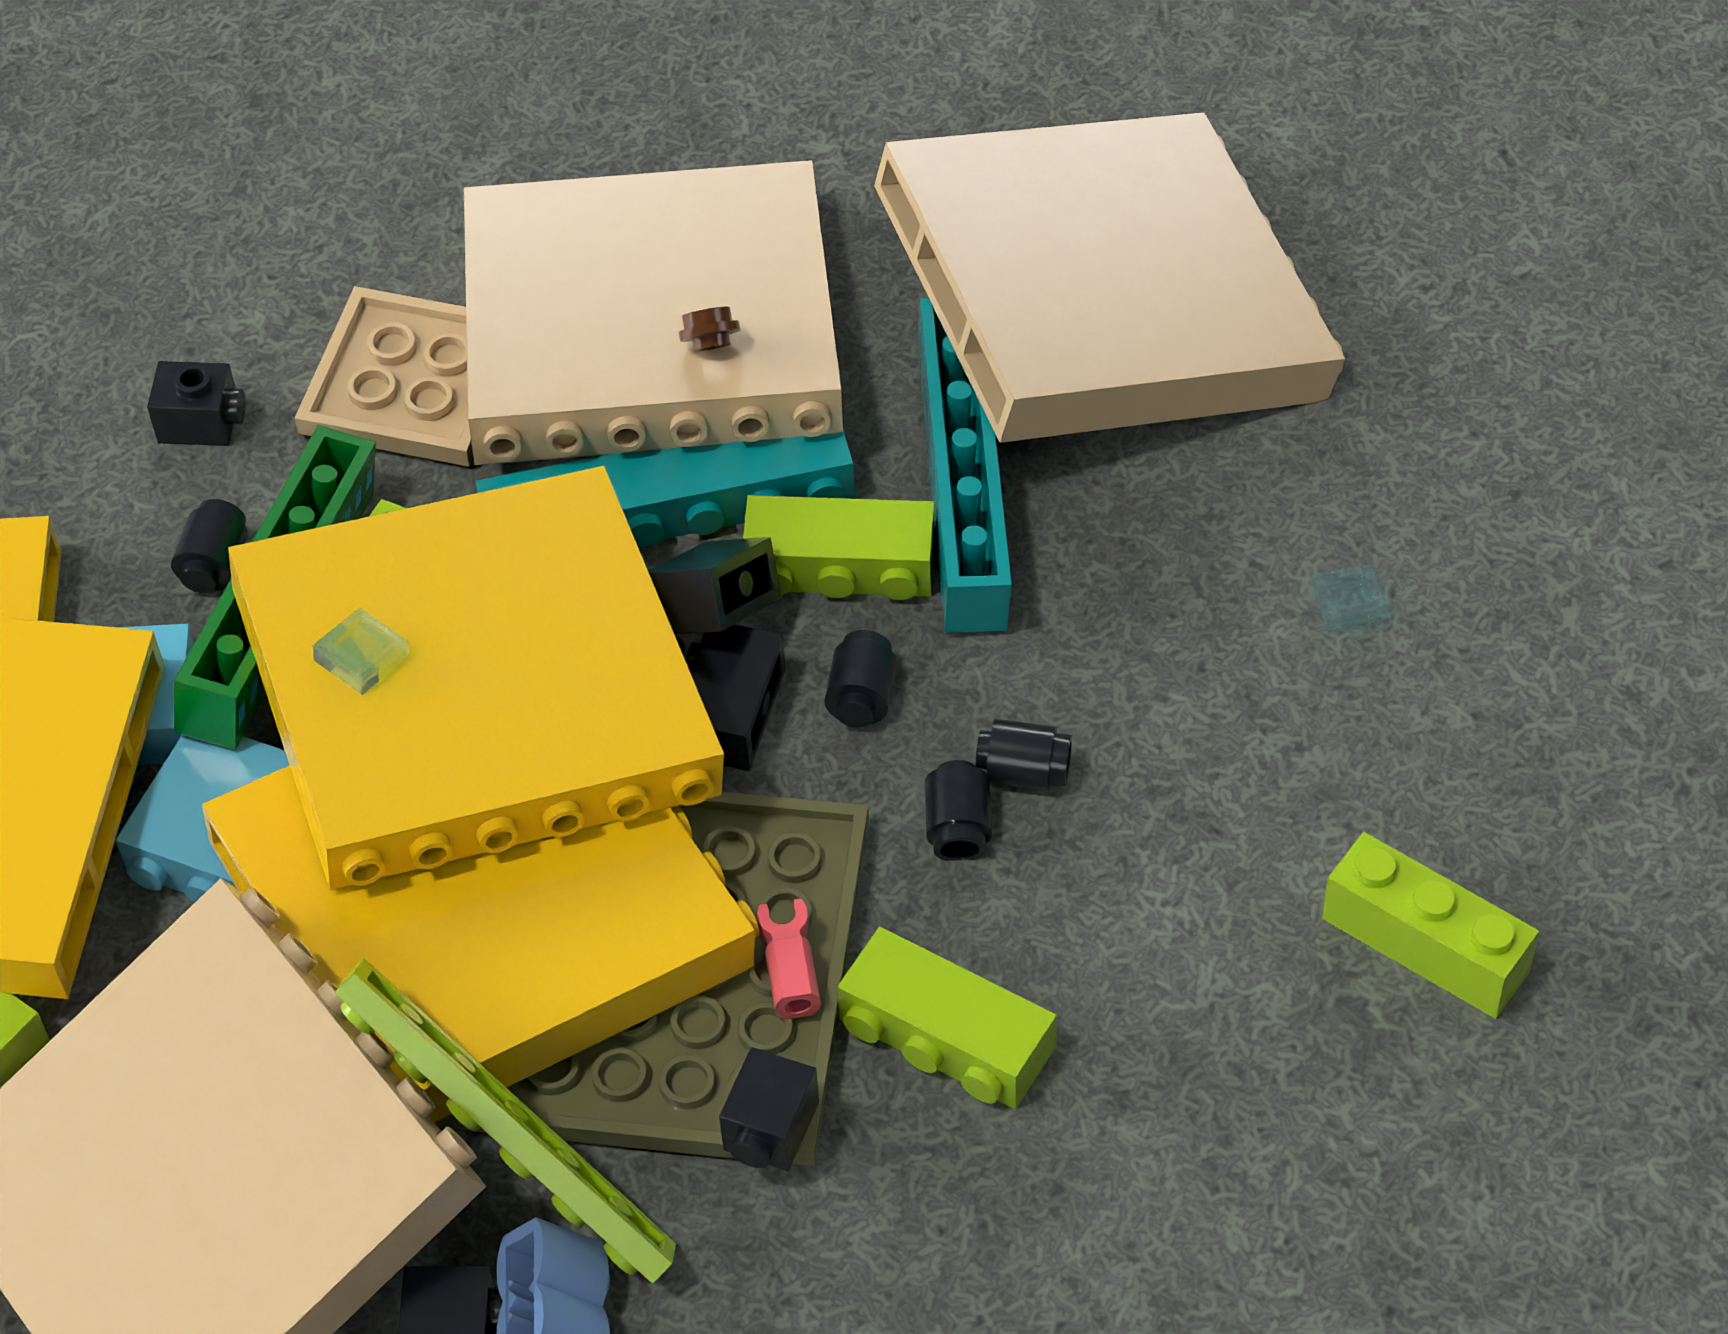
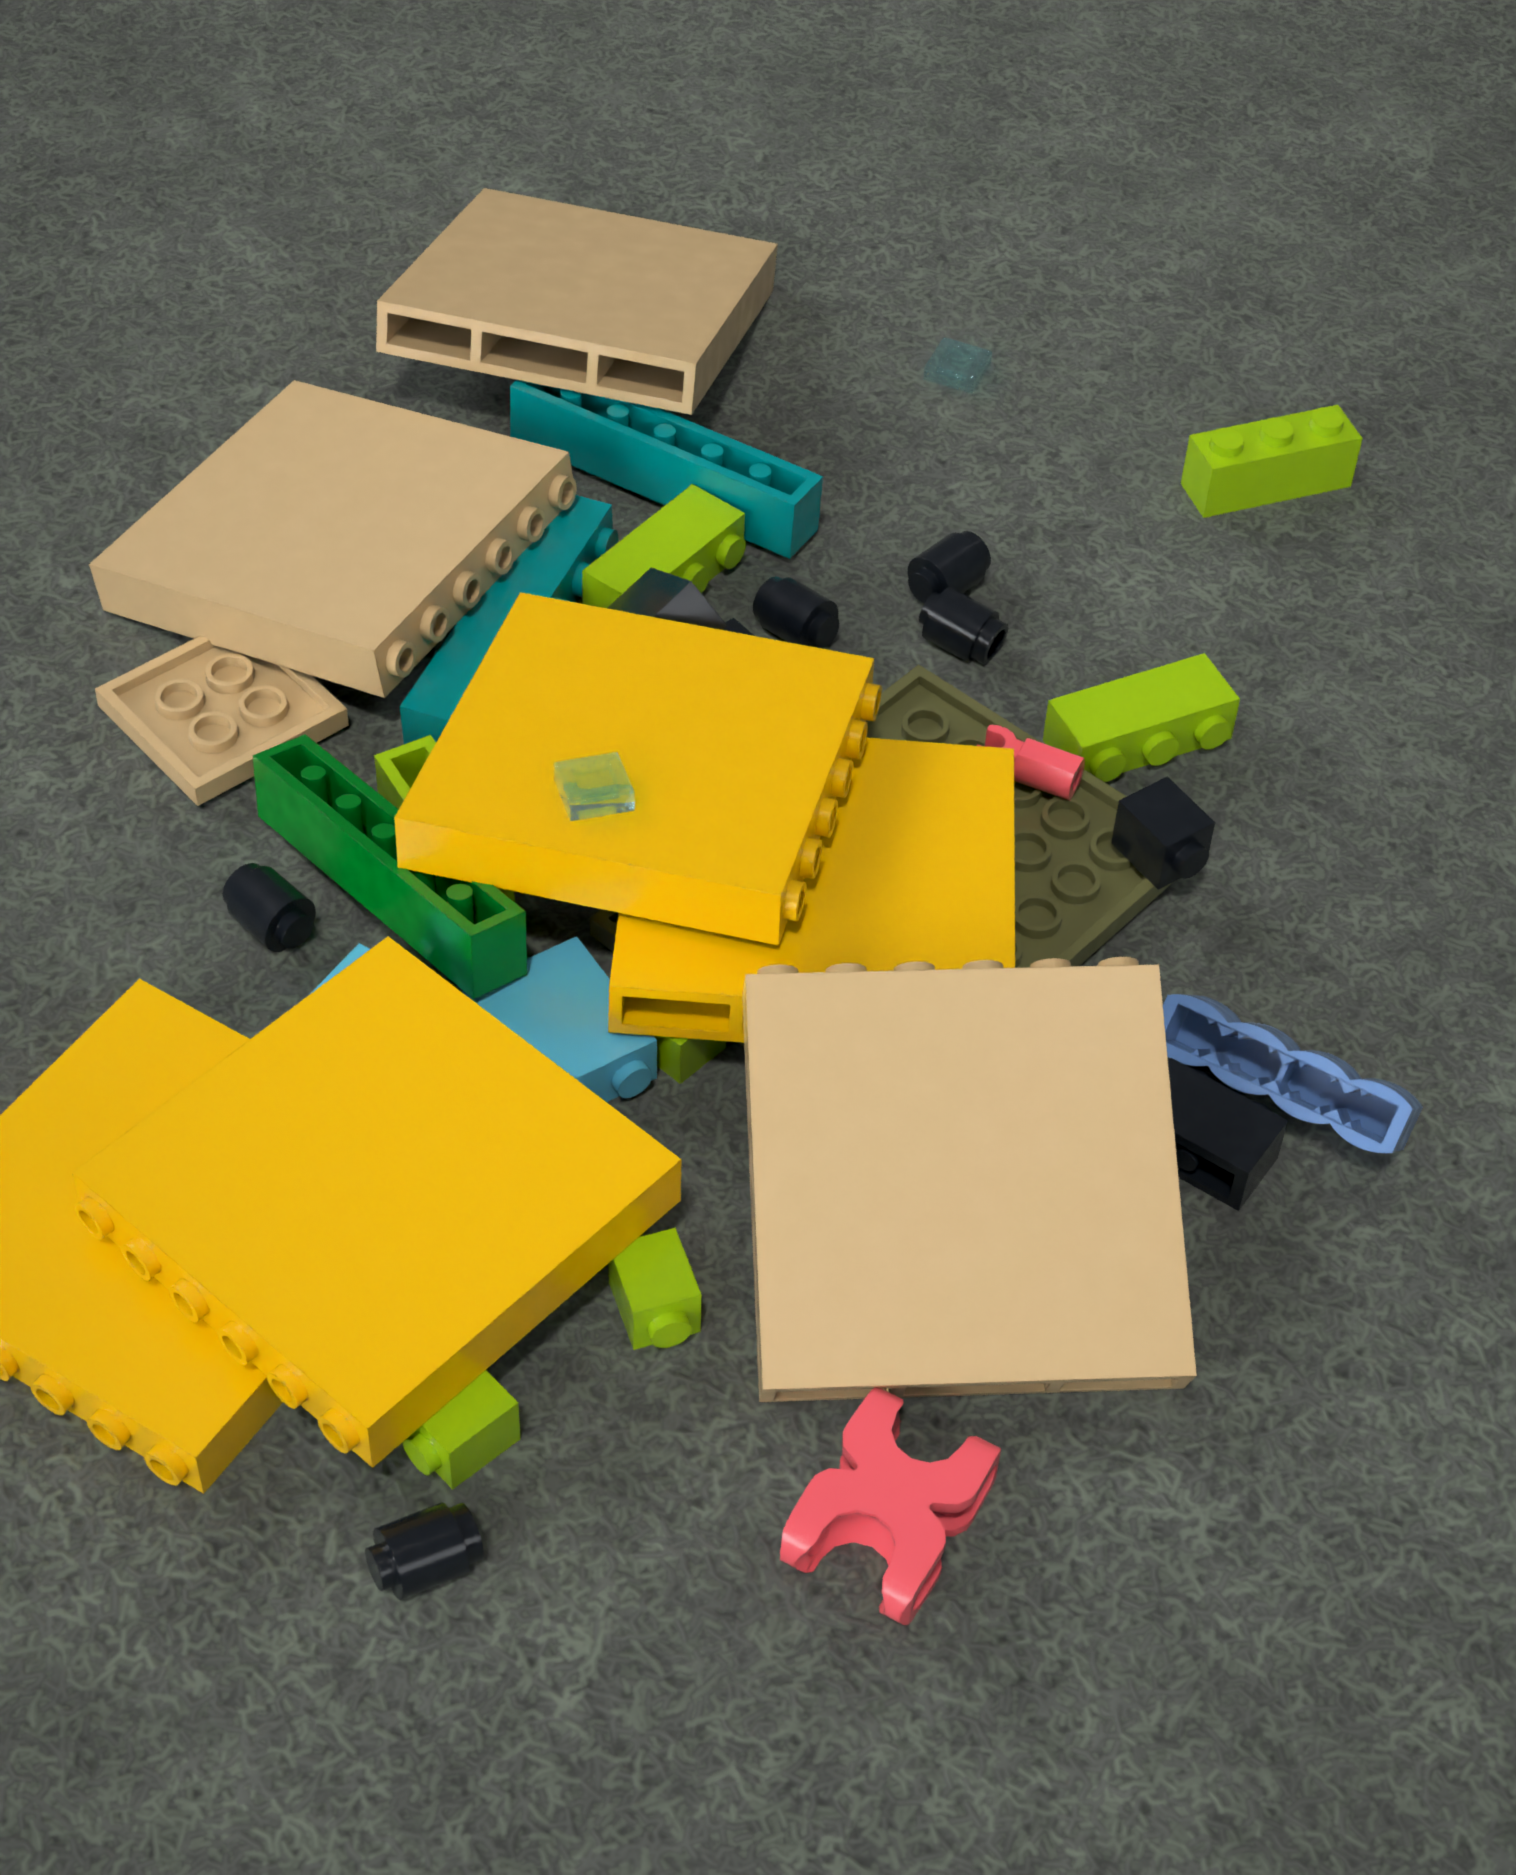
camera: 60 degrees left, 5 degrees down
(195, 403) = (102, 843): black brick -> none
(485, 1103) = (1017, 944): lime plate -> none
(709, 328) = (442, 478): reddish brown plate -> none

